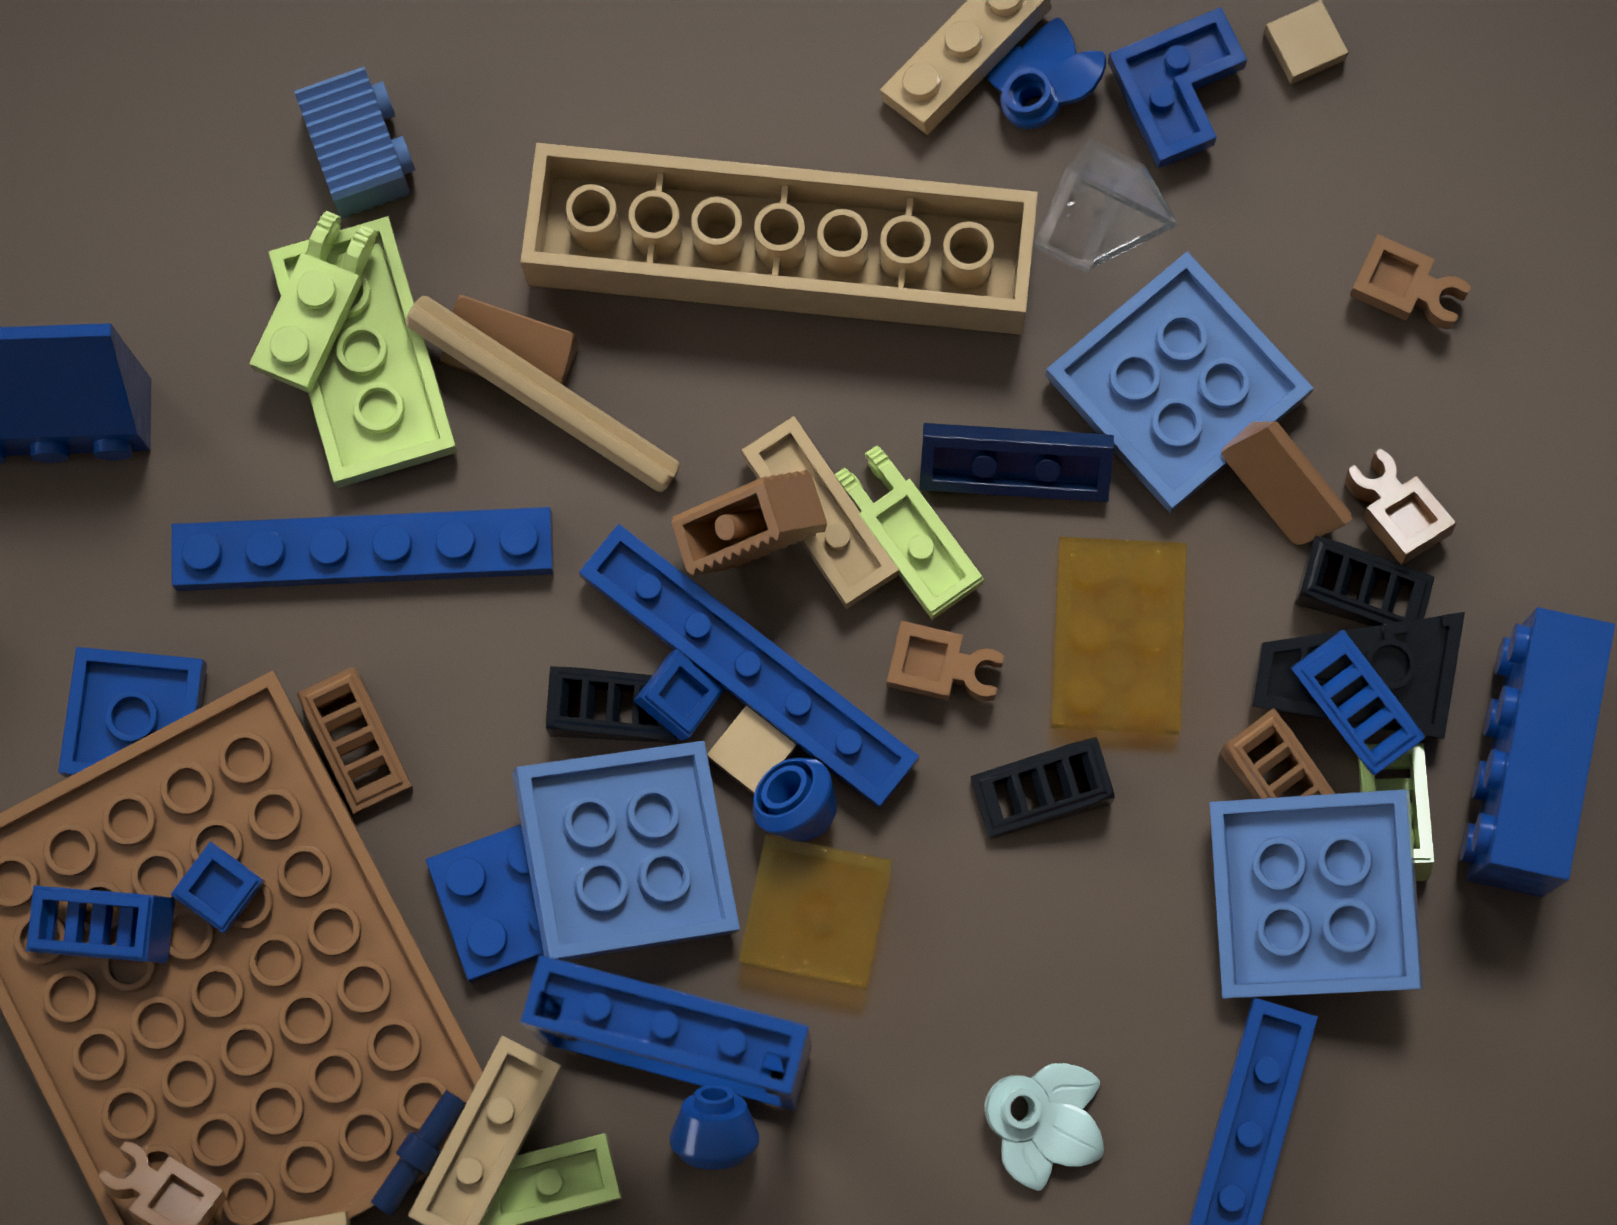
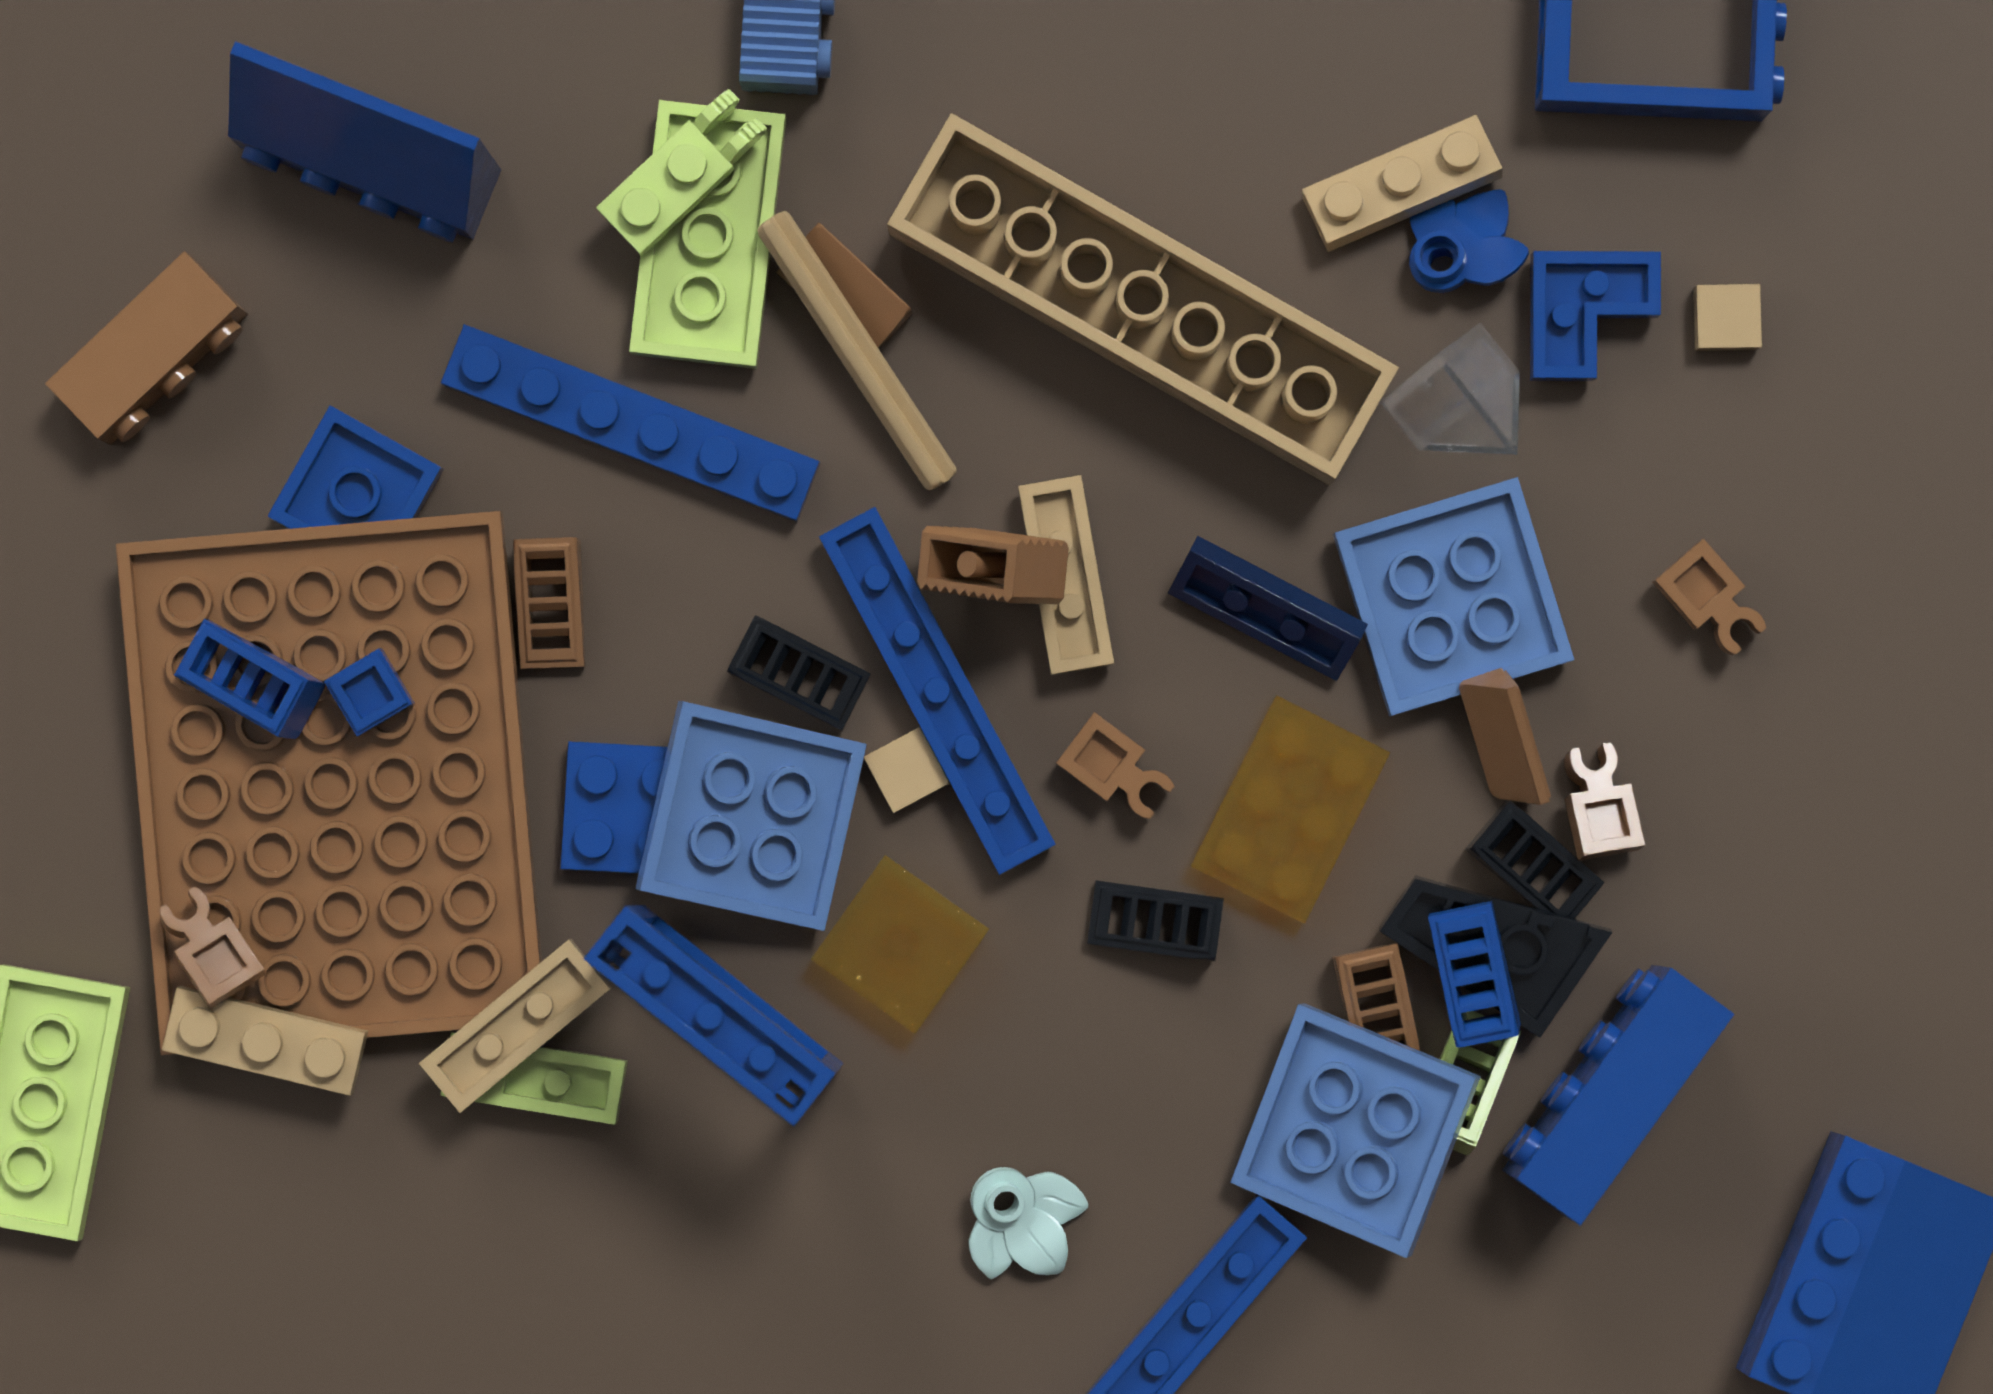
camera: 20 degrees right, 10 degrees up
(418, 1153) = (452, 1009): dark blue bar -> none
(679, 695) = (862, 690): blue tile -> none
(714, 1129) = (720, 1106): blue cone -> none
(795, 800) = (925, 836): blue cone -> none
(913, 537) = (1140, 636): yellowish green hinge -> none

